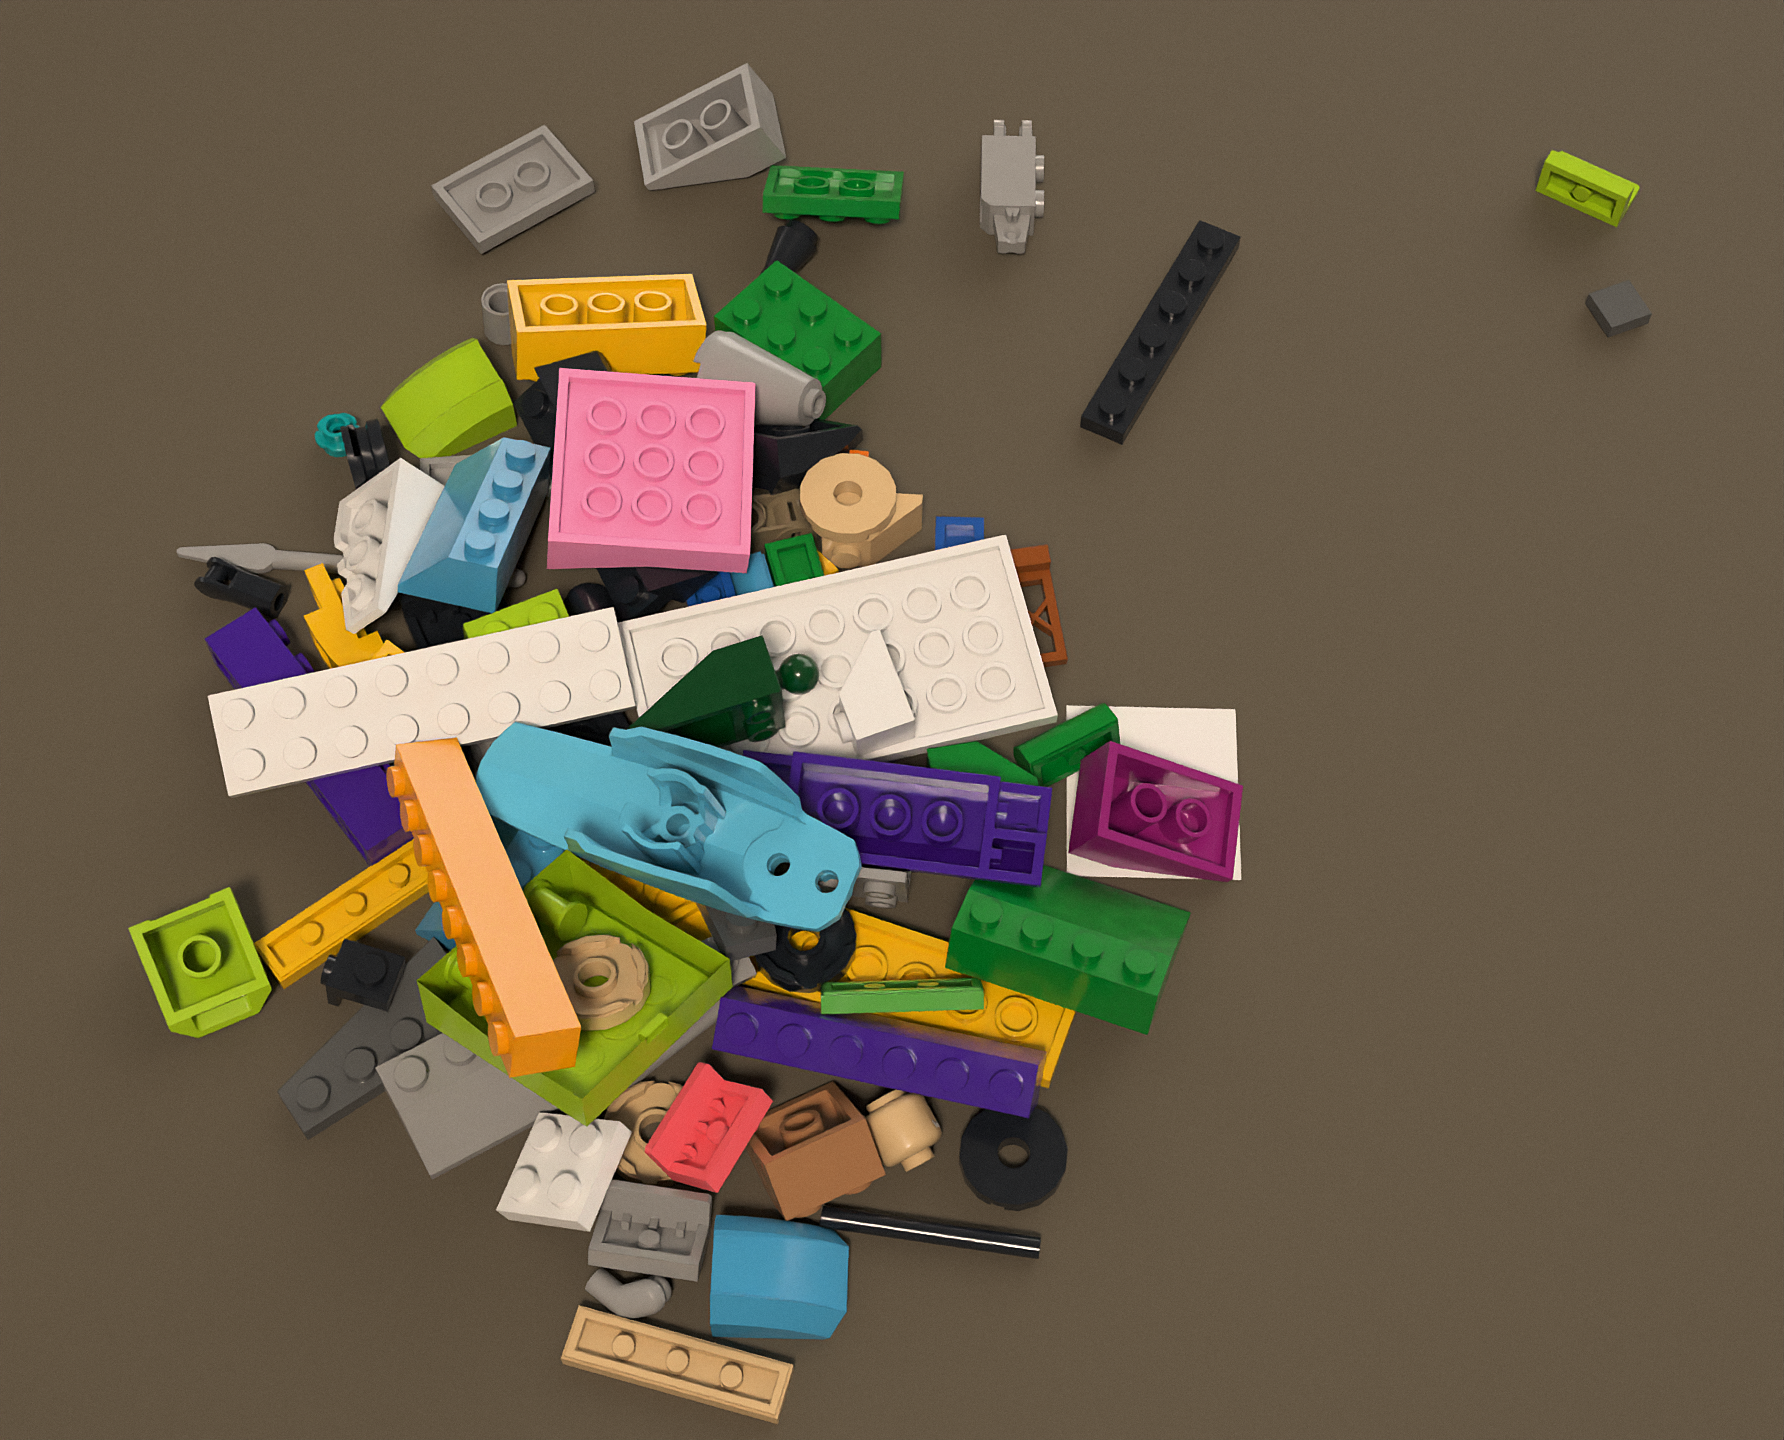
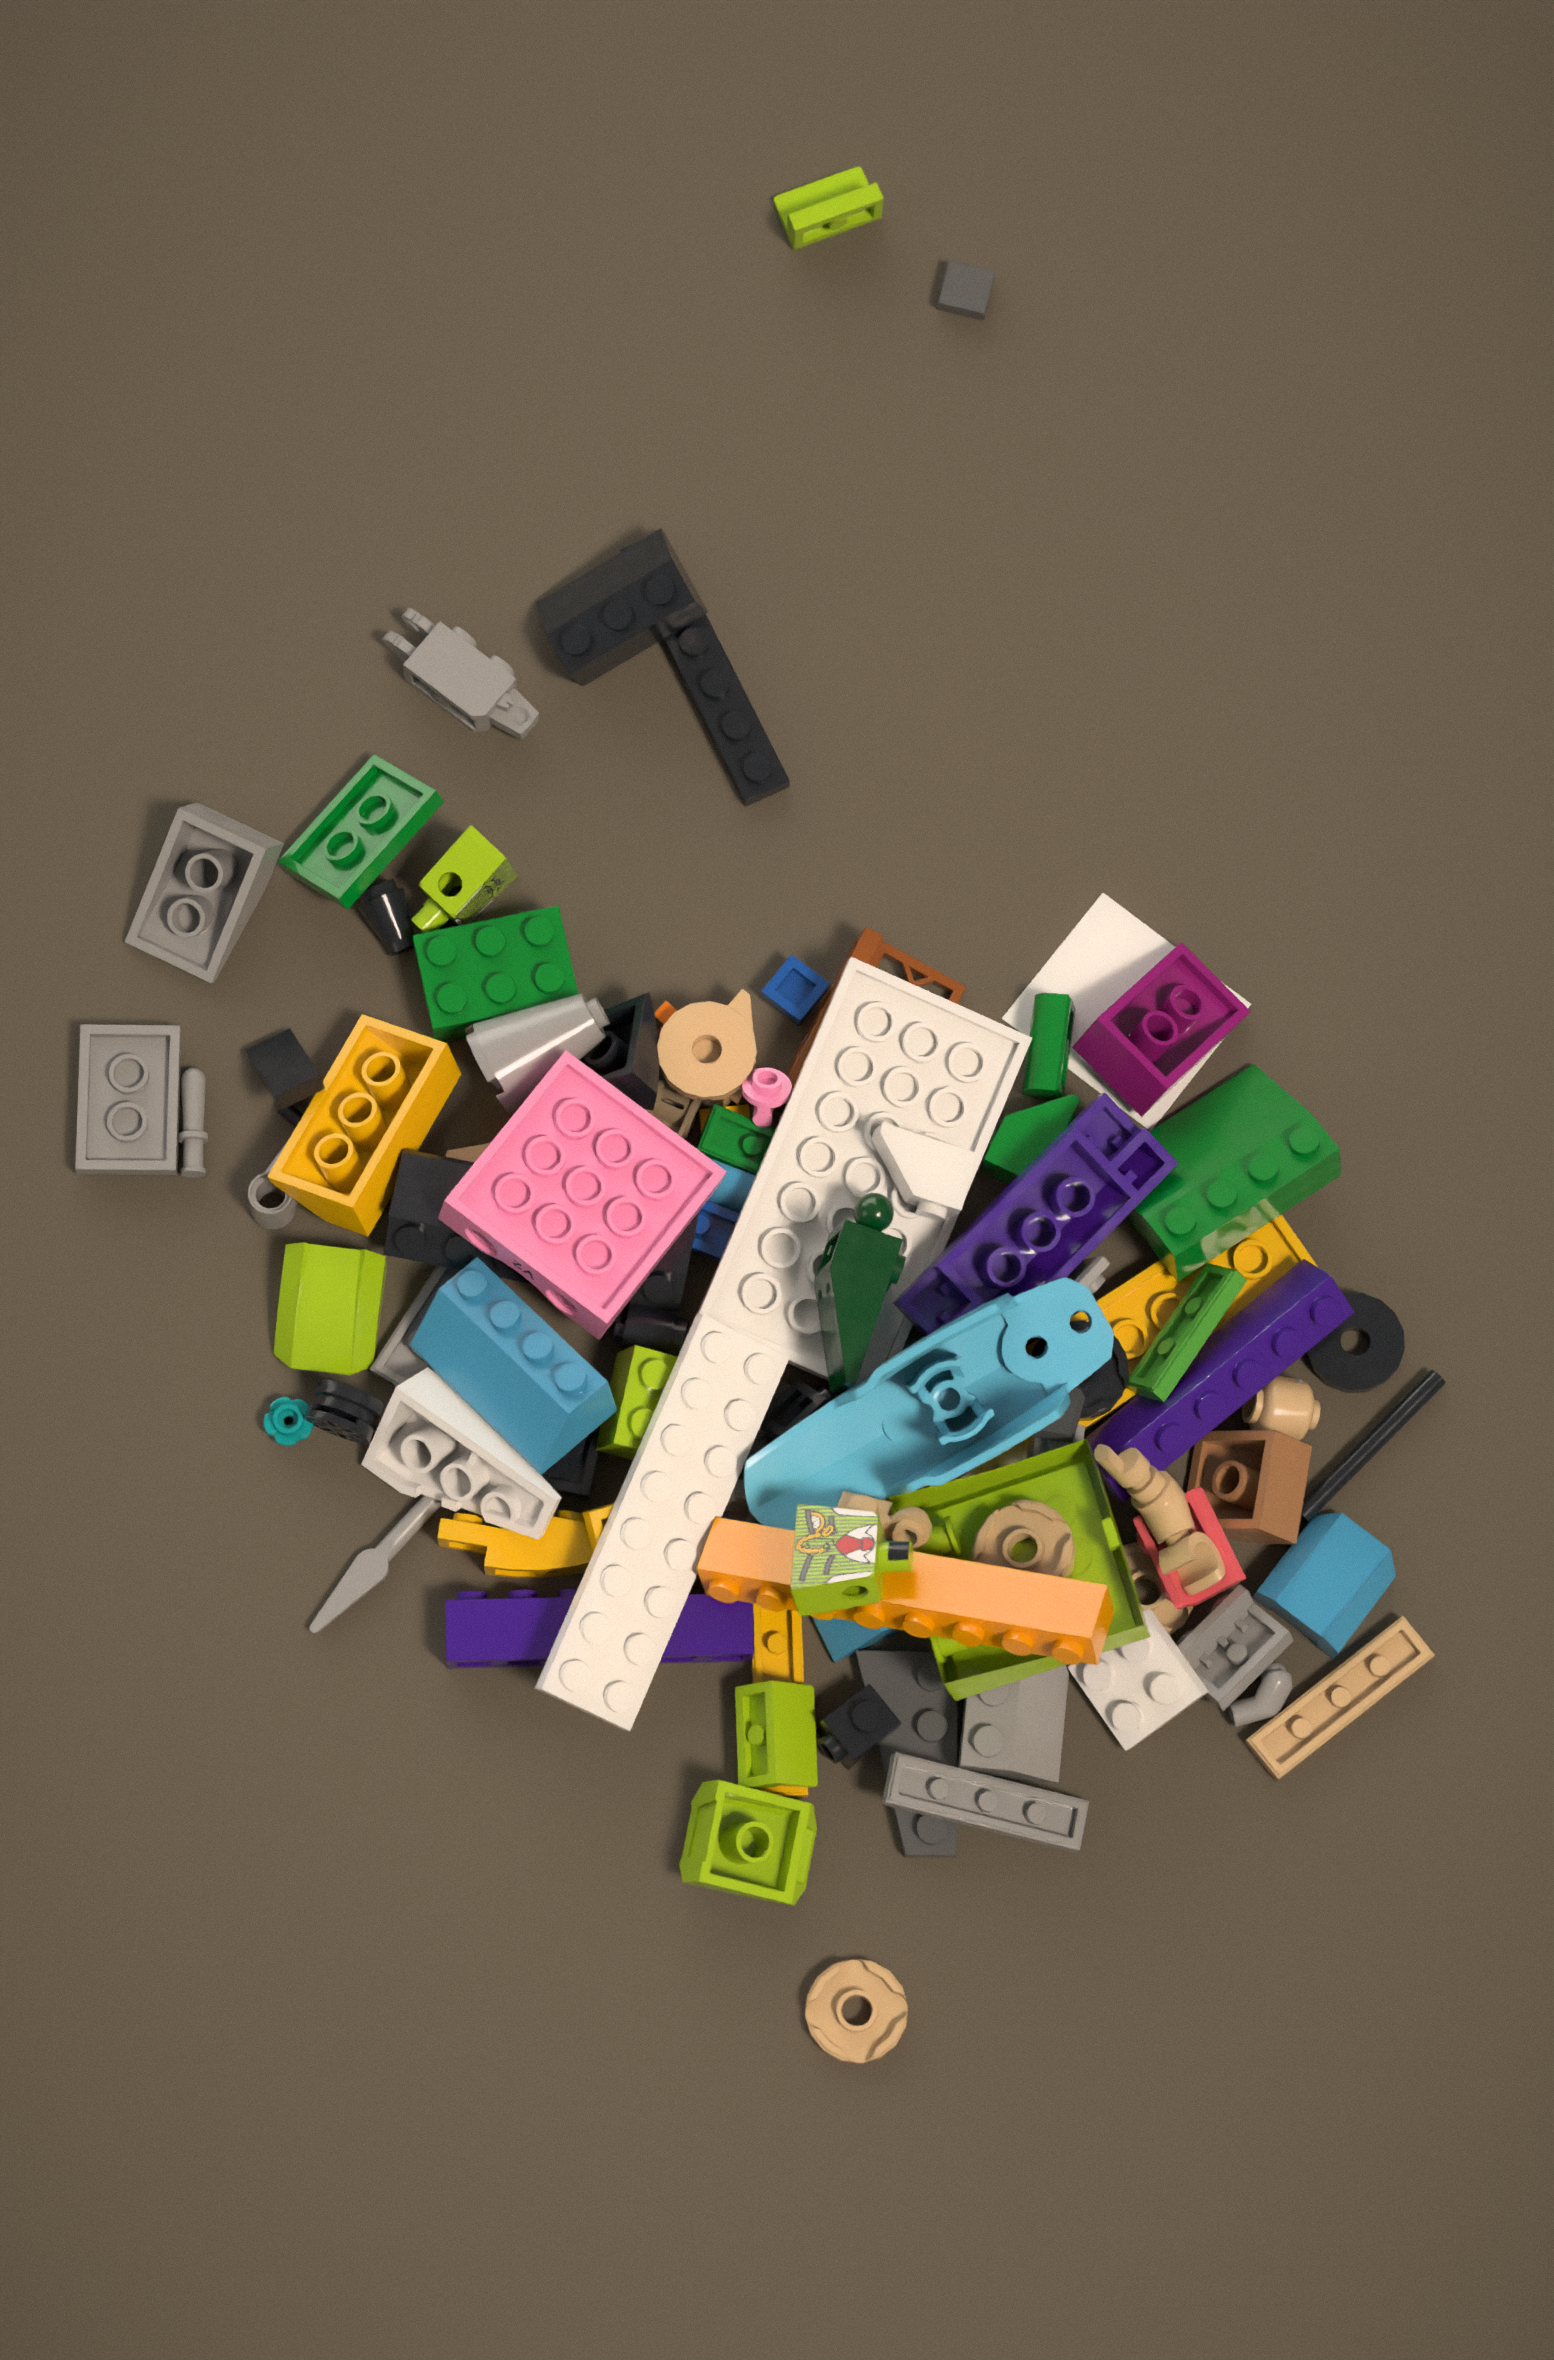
camera: 60 degrees left, 15 degrees up
(130, 1169) = (851, 2042): none -> tan tile
(244, 590) = (402, 1596): black bar -> none
(313, 921) = (776, 1735): none -> lime panel
(364, 1121) = (985, 1802): none -> light grey tile
(461, 820) = (842, 1559): none -> torso
(518, 244) = (193, 1135): none -> light grey piece
(530, 838) = (906, 1525): none -> tan plate
(609, 256) = (285, 1069): none -> black tile
(720, 1080) = (1168, 1518): none -> tan piece
(847, 554) = (766, 1090): none -> bright pink plate
(855, 272) = (467, 864): none -> lime torso
(1148, 243) = (620, 608): none -> black slope

